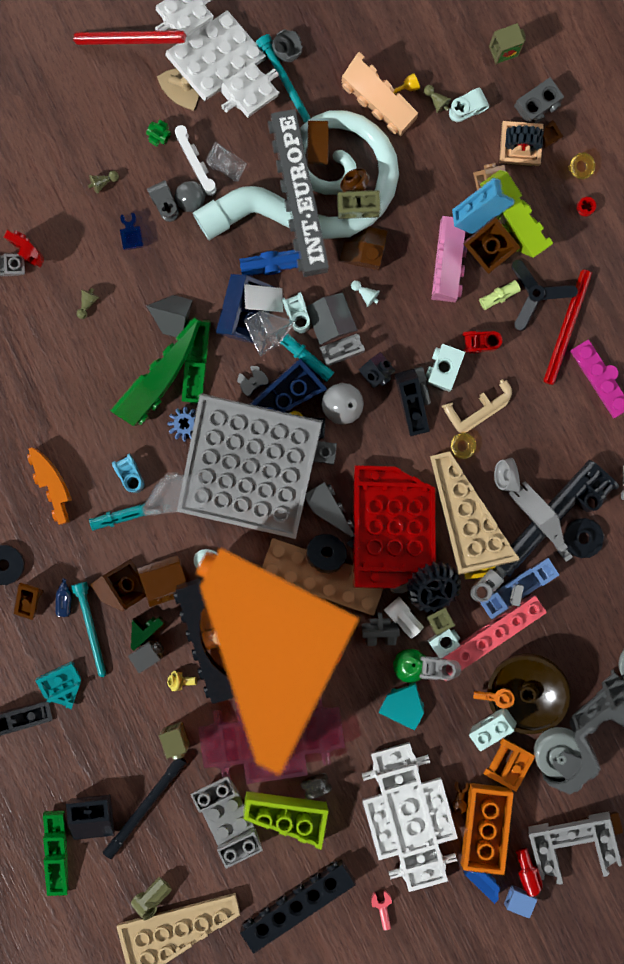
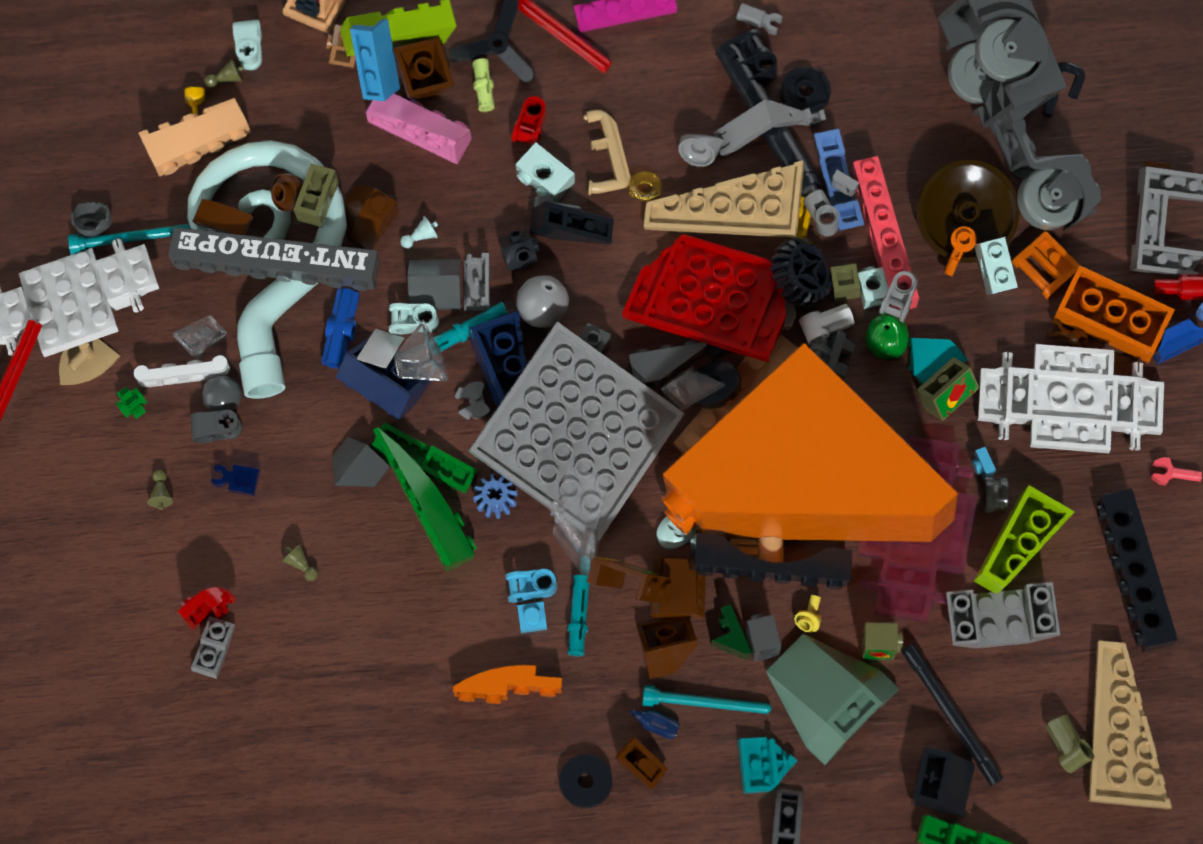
camera: 65 degrees left, 15 degrees down
(107, 483) = (532, 617): none -> medium azure plate
(126, 715) = (827, 694): none -> sand green wedge
(156, 561) = (612, 573): none -> reddish brown panel
(316, 535) = (690, 387): none -> clear slope
(337, 768) = (983, 463): none -> medium azure plate
(383, 725) = (948, 389): none -> olive brick

